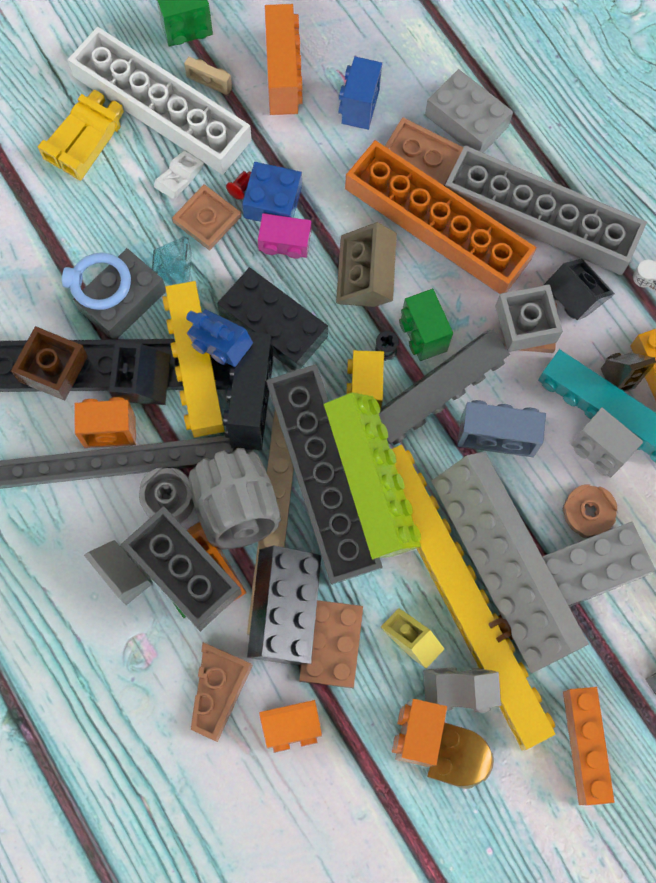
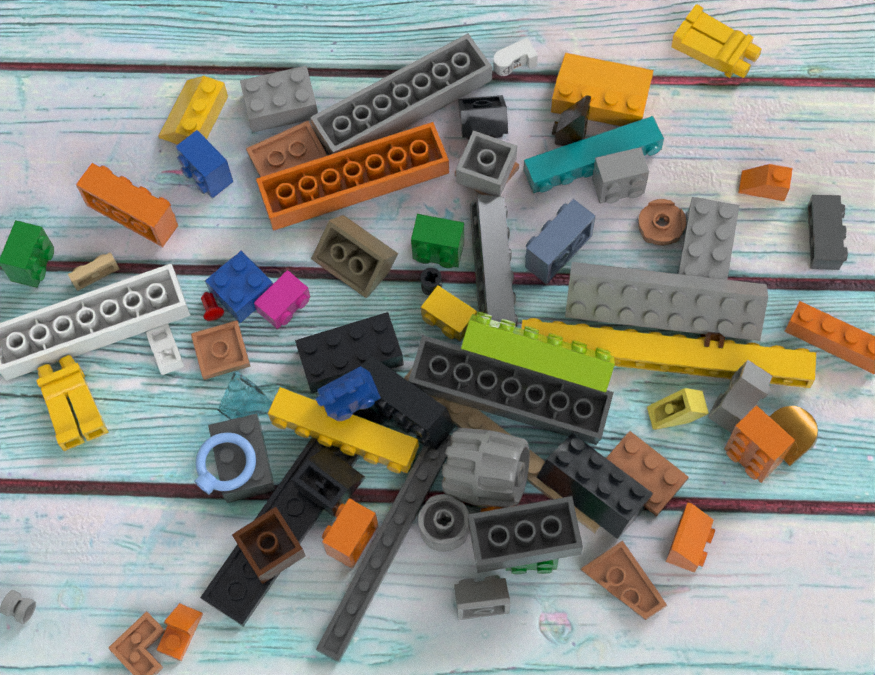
camera: 50 degrees left, 5 degrees down
(409, 58) = (195, 109): none -> yellow slope

